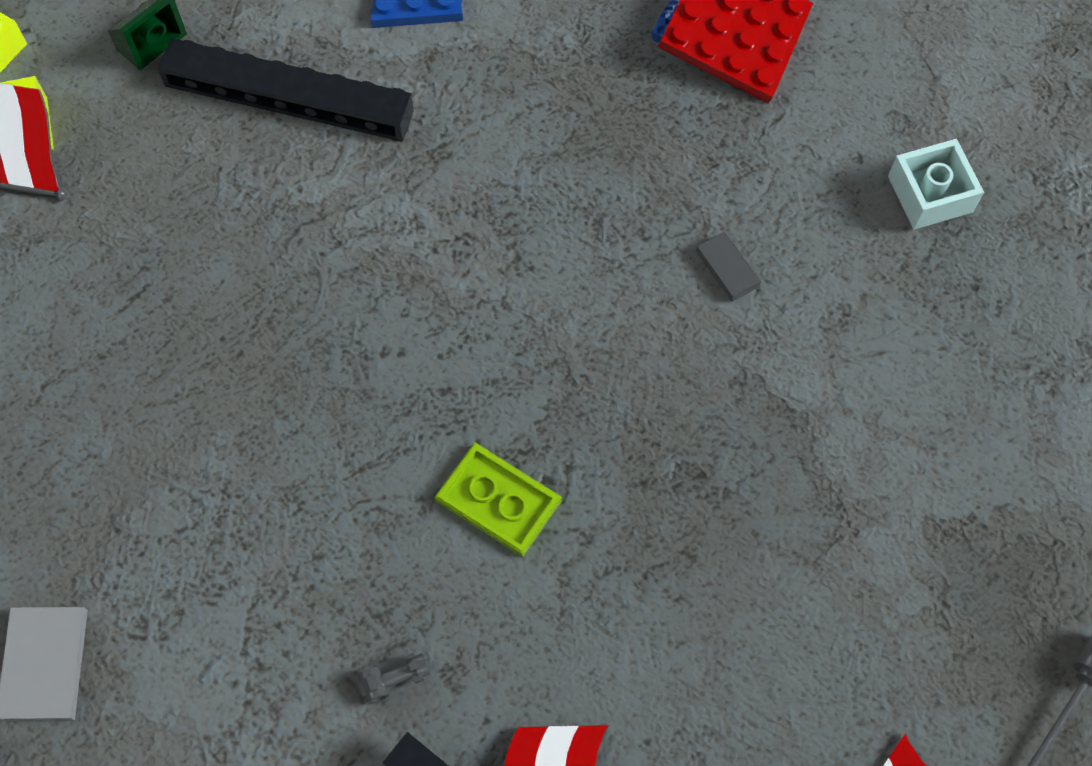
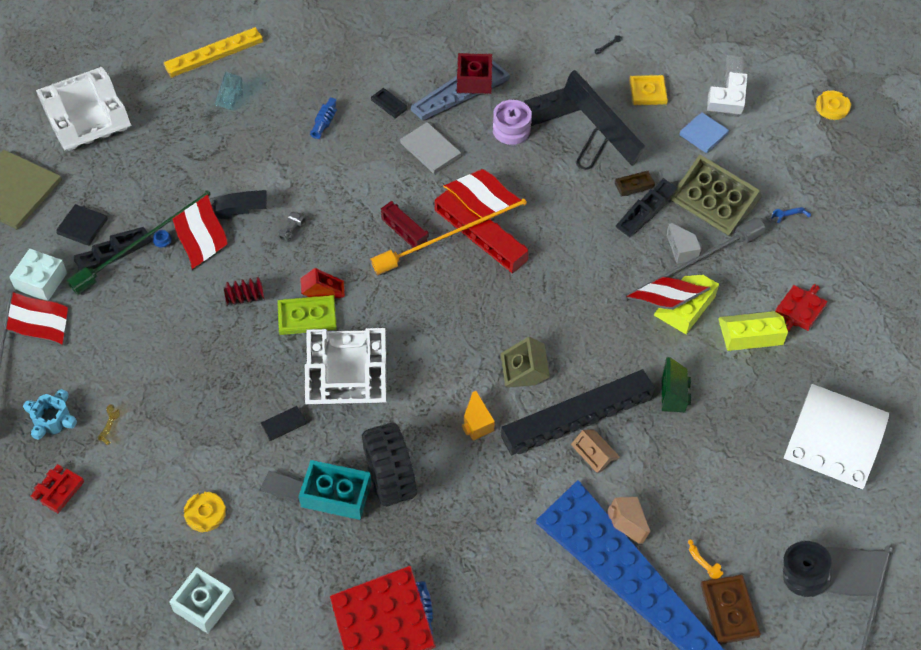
camera: 140 degrees right, 10 degrees down
(75, 470) = (479, 193): none -> flag
(128, 439) = (486, 234): none -> red brick
(228, 533) = (403, 225): none -> dark red container
(284, 193) = (525, 363): none -> olive slope
(315, 37) = (594, 449): none -> medium nougat panel
(413, 170) = (477, 418): none -> light orange slope
(441, 521) = (321, 284): none -> red slope
(519, 352) = (345, 367): none -> white slope
(563, 602) = (243, 291): none -> dark red piece
(588, 151) = (389, 464): none -> black tyre
(662, 353) = (283, 423): none -> black tile
(671, 199) = (335, 489): none -> teal brick
(853, 308) = (204, 512): none -> yellow tile
(911, 531) = (112, 416): none -> clear yellow piece
(1014, 595) = (46, 401): none -> medium azure piece
(1037, 469) = (61, 491): none -> red plate

